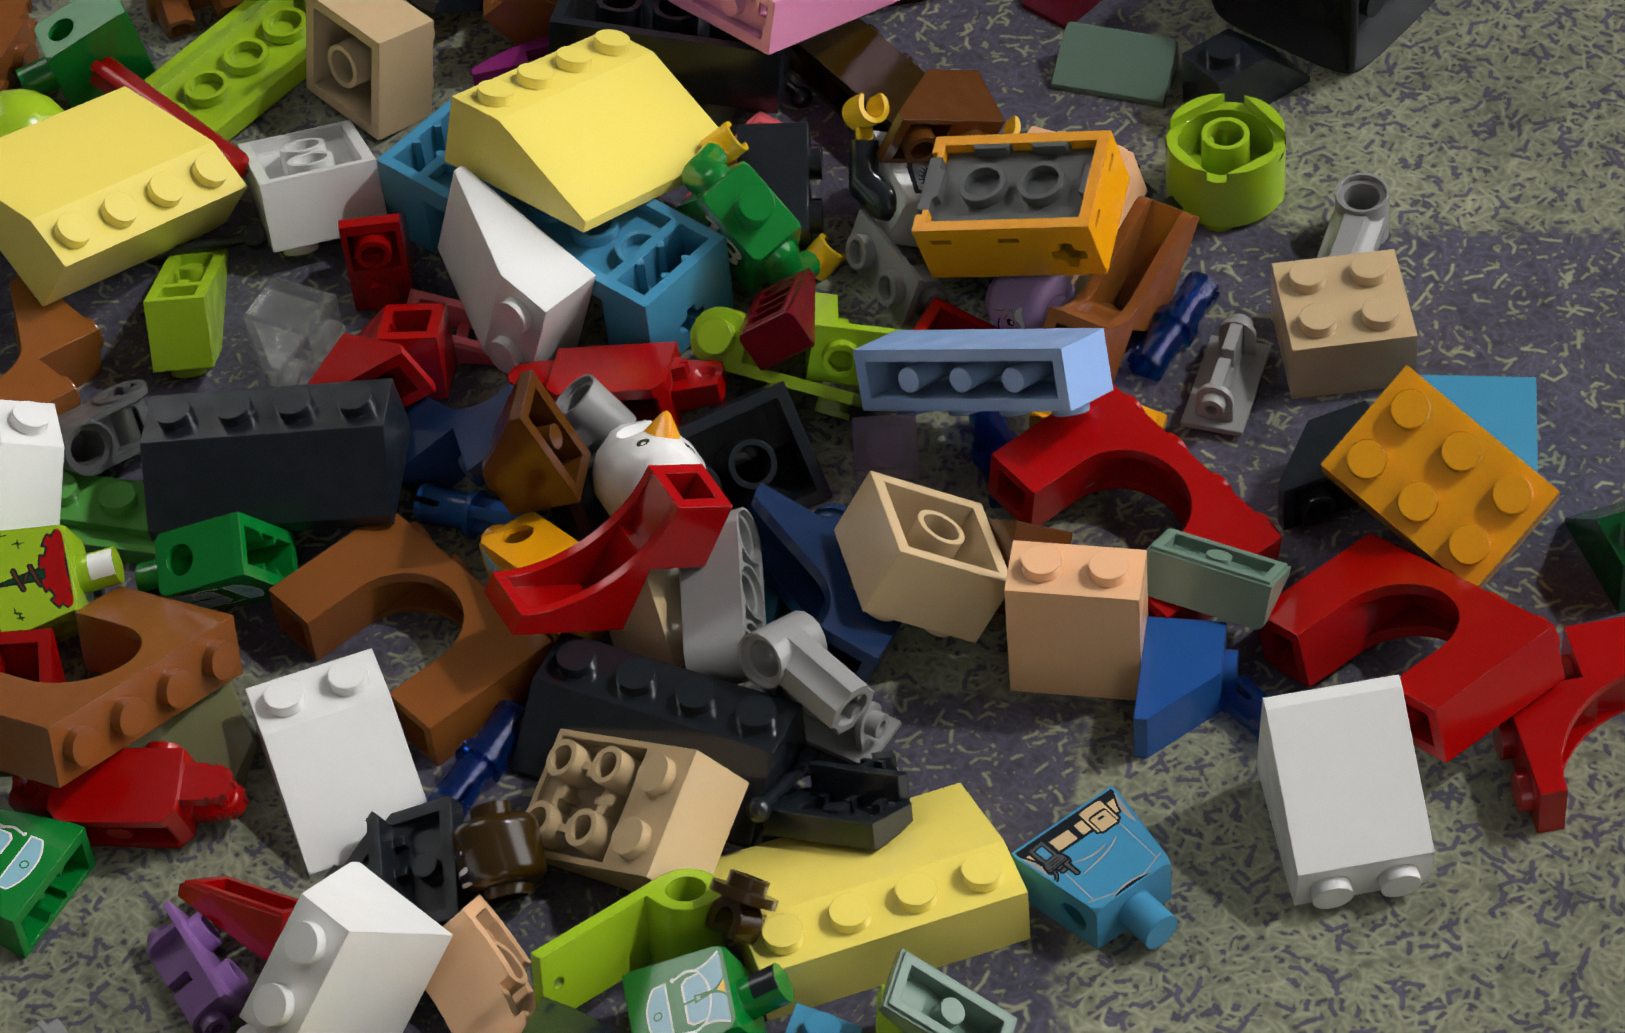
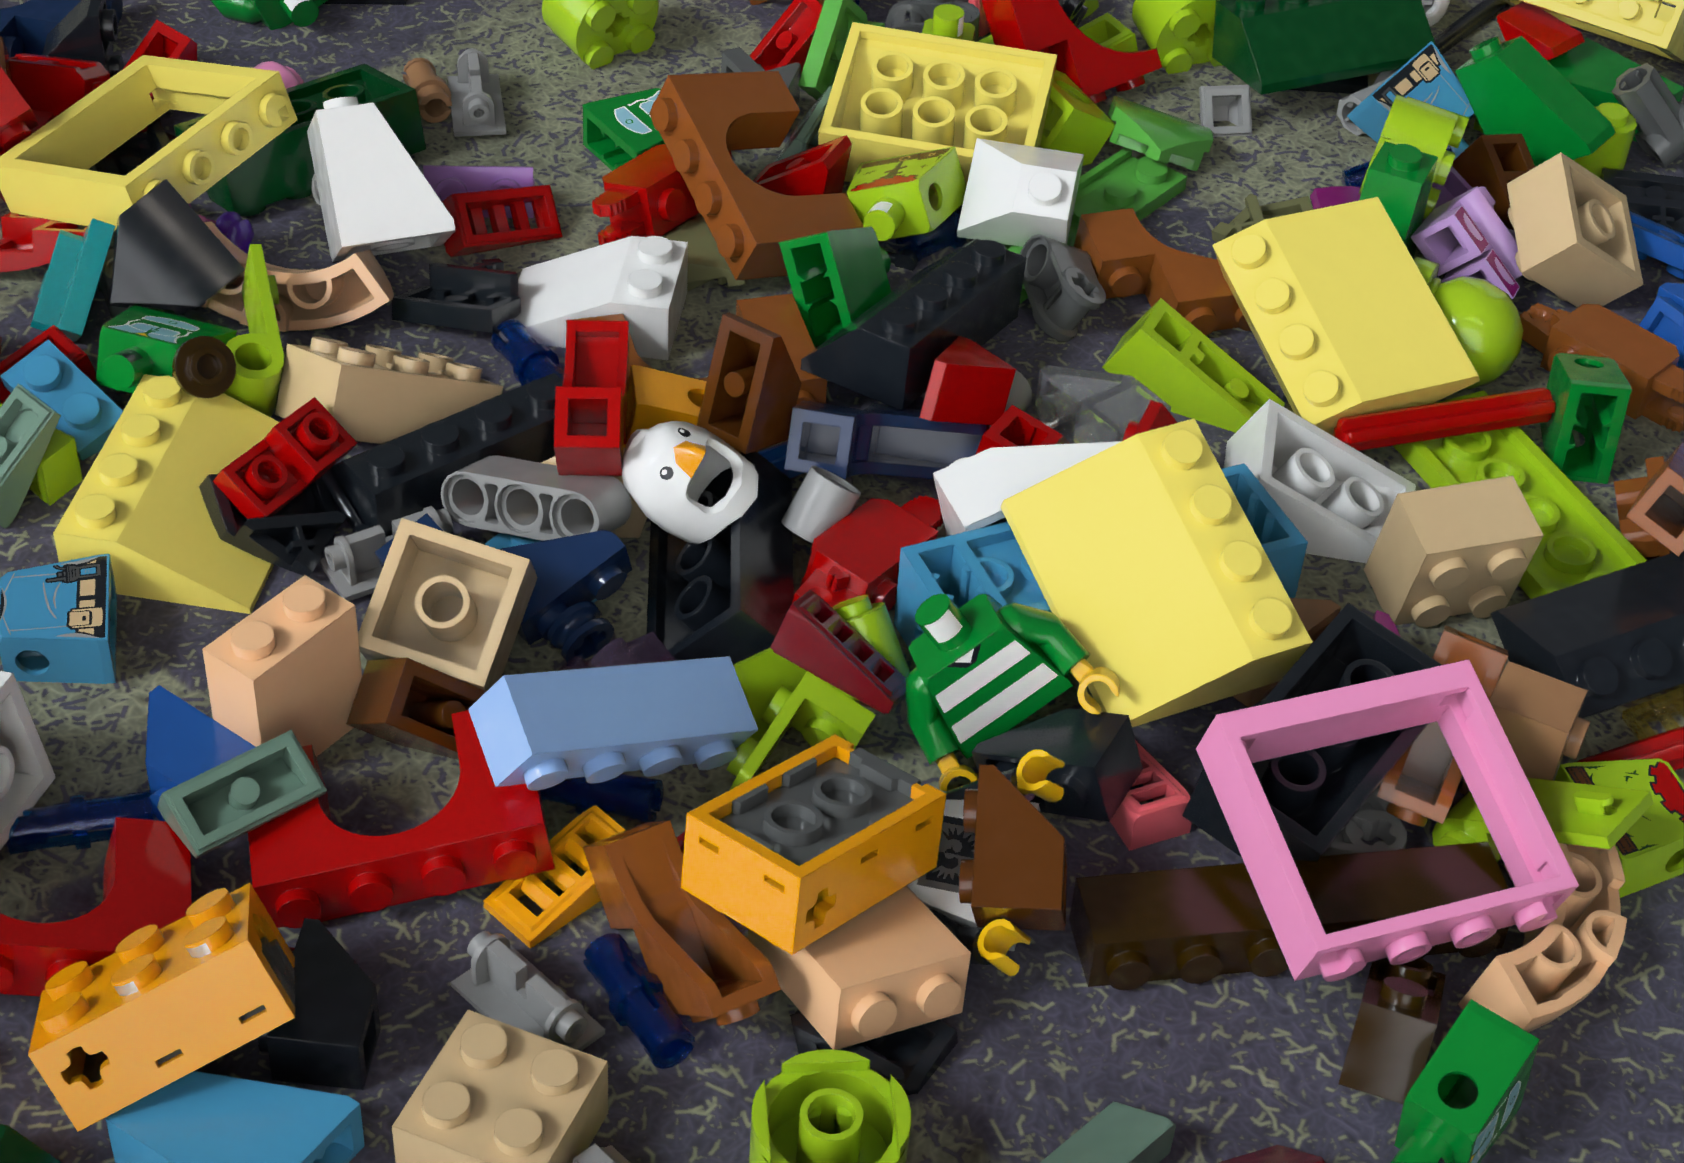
camera: 110 degrees right, 5 degrees down
(499, 852) = (416, 317): dark brown head -> none
(787, 781) = (285, 461): none -> red slope
(796, 657) = (415, 485): light grey piece -> none

